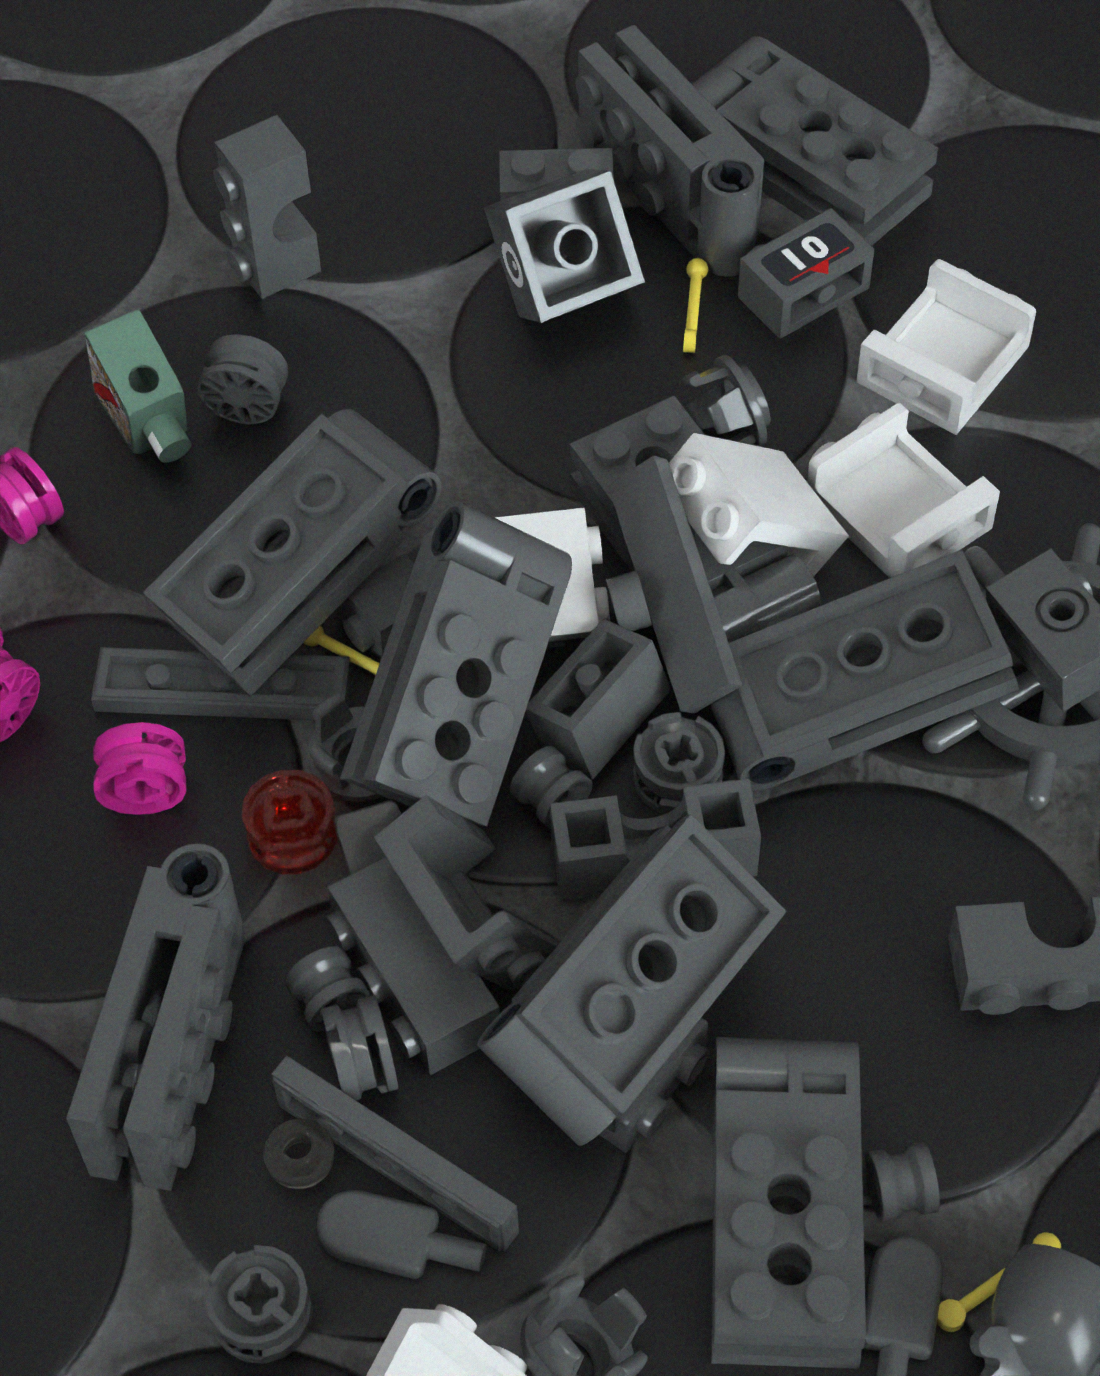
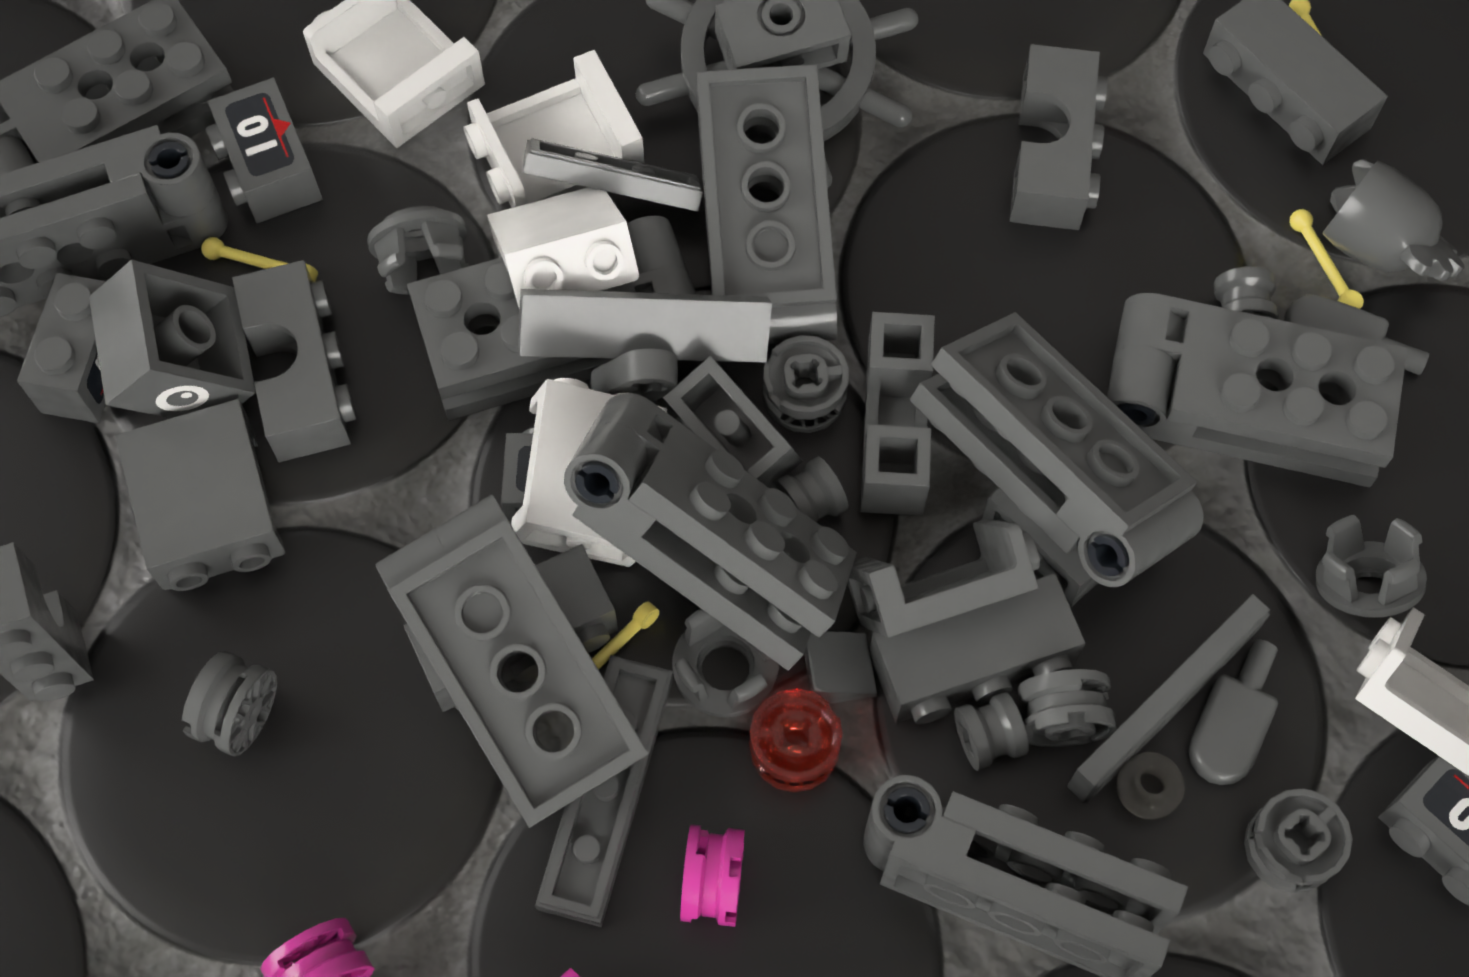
camera: 80 degrees left, 10 degrees up
(138, 387) = (194, 814): sand green torso -> none
(434, 310) = (199, 496): none -> dark grey panel
(550, 369) = (303, 406): none -> dark grey arch
(855, 519) = (612, 174): none -> tile

